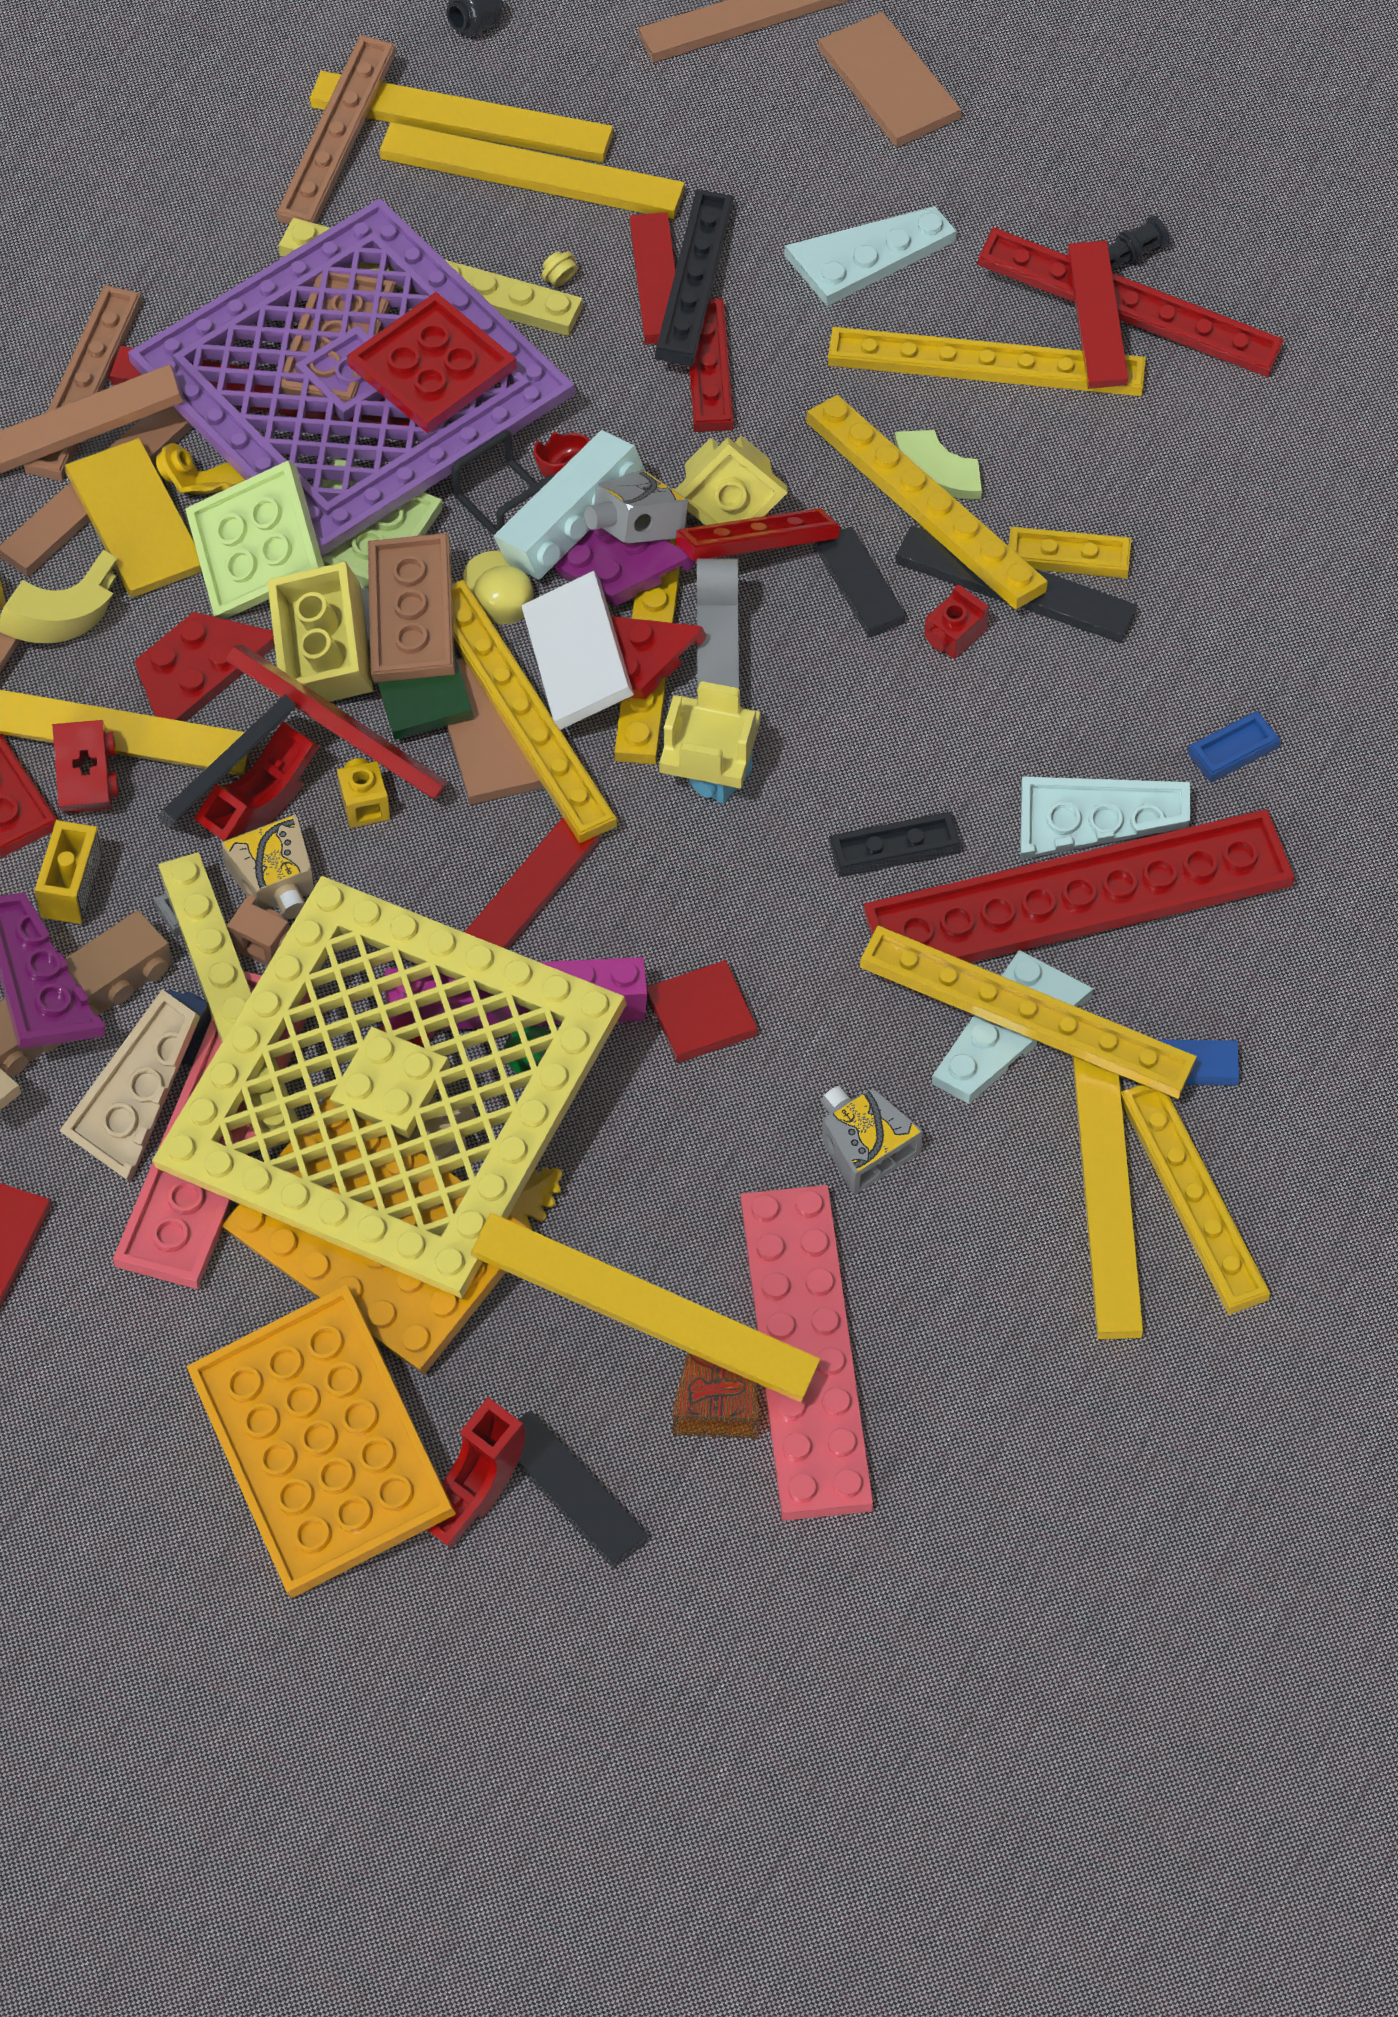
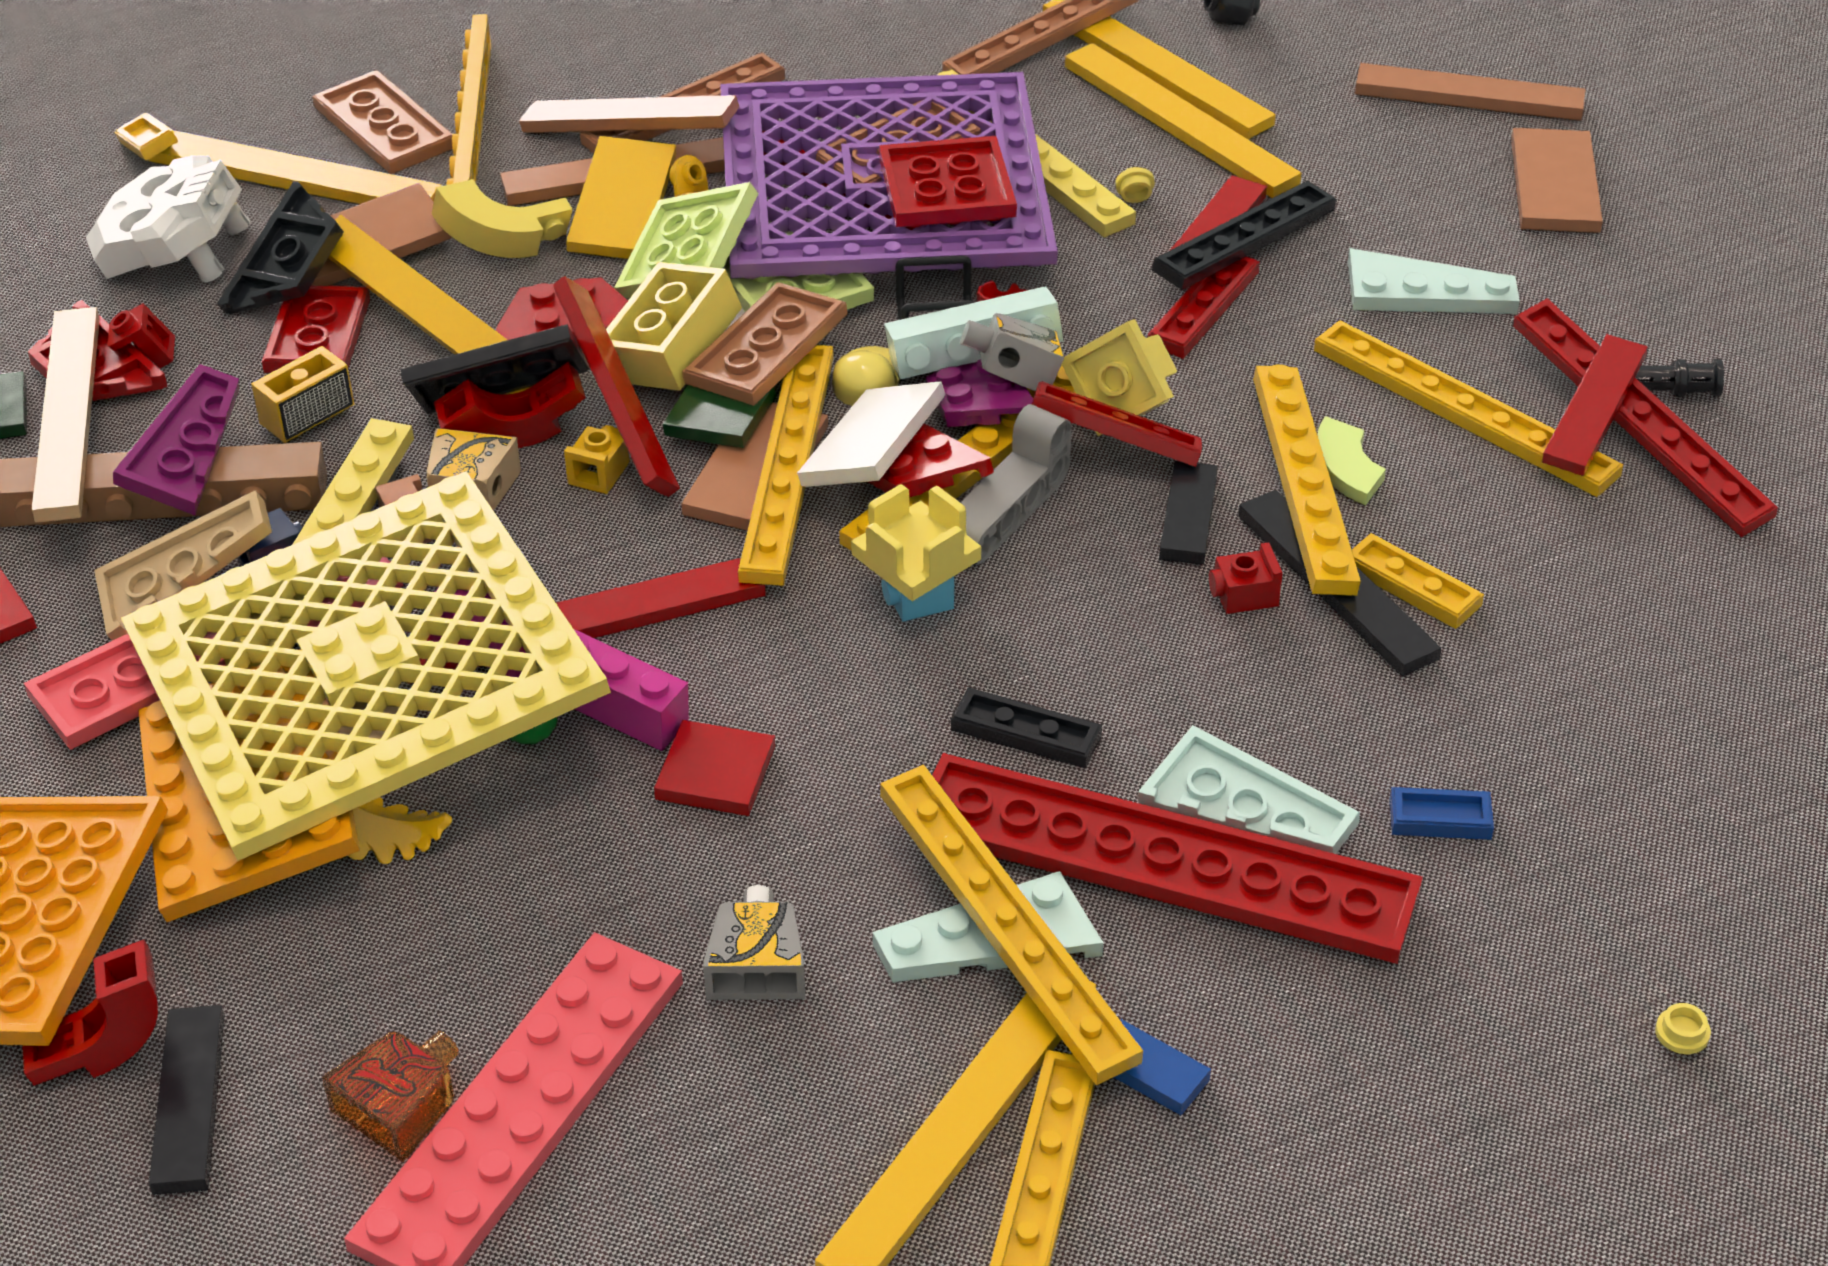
camera: 35 degrees right, 15 degrees down
(71, 745) = (393, 329): red brick -> none
(645, 1307) = (383, 965): yellow tile -> none

